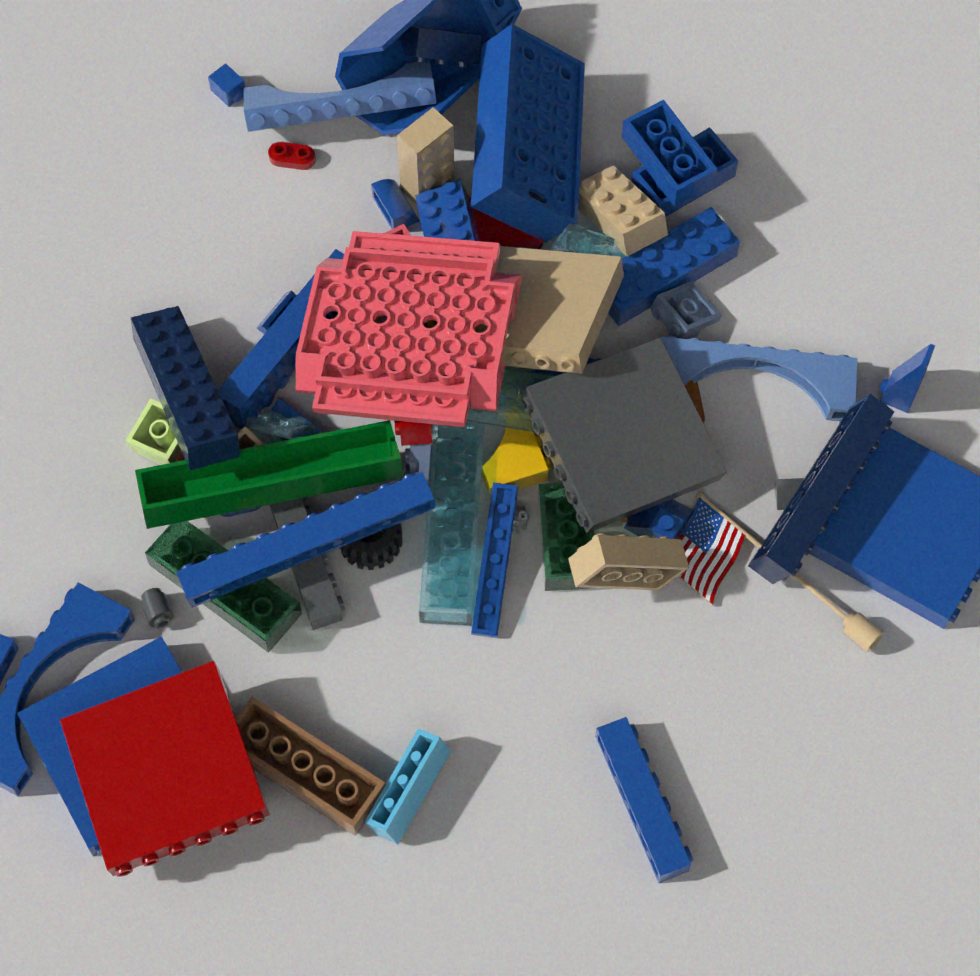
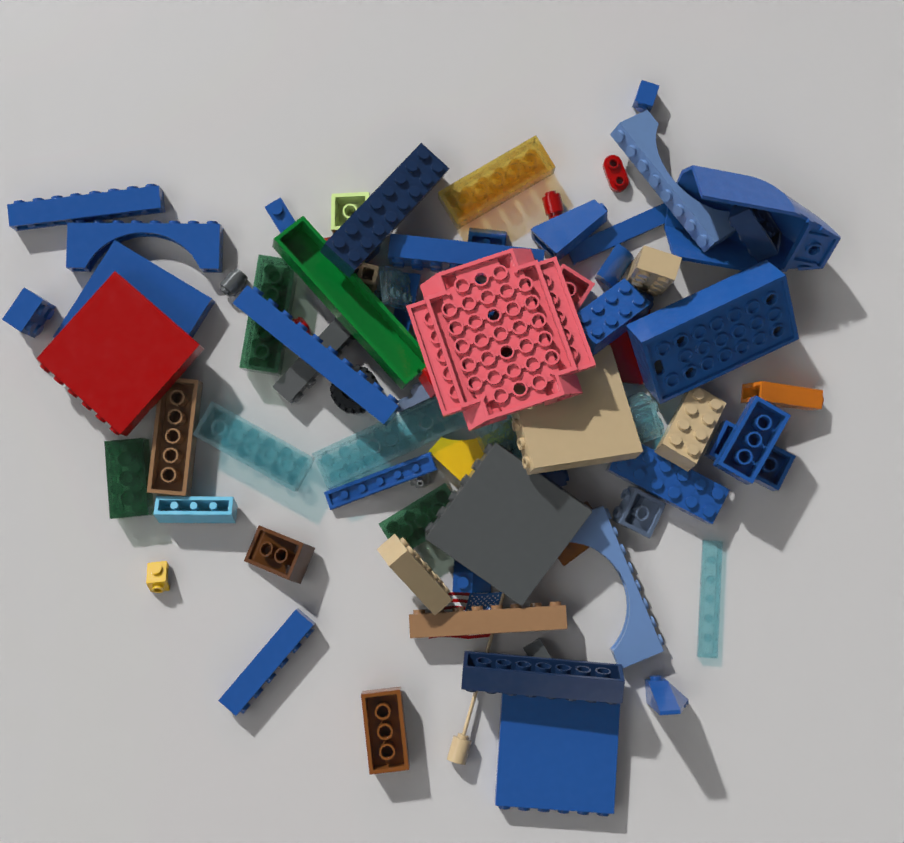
camera: 60 degrees right, 20 degrees up
(40, 862) = (29, 313): none -> blue piece
(115, 518) = (280, 214): none -> blue plate
(225, 271) = (496, 182): none -> clear yellow brick
(287, 230) = (553, 204): none -> red brick
(322, 849) = (128, 478): none -> clear green brick
(324, 223) = (569, 229): none -> blue slope
(360, 180) = (619, 233): none -> blue tile
(370, 678) = (254, 446): none -> clear light blue brick
(465, 879) = (157, 576): none -> yellow bracket
(517, 719) = (279, 554): none -> reddish brown slope
(647, 94) = (783, 395): none -> orange slope
(725, 524) = (488, 620): none -> medium nougat brick
(797, 699) = (385, 730): none -> dark orange brick
(822, 292) = (709, 599): none -> clear light blue tile

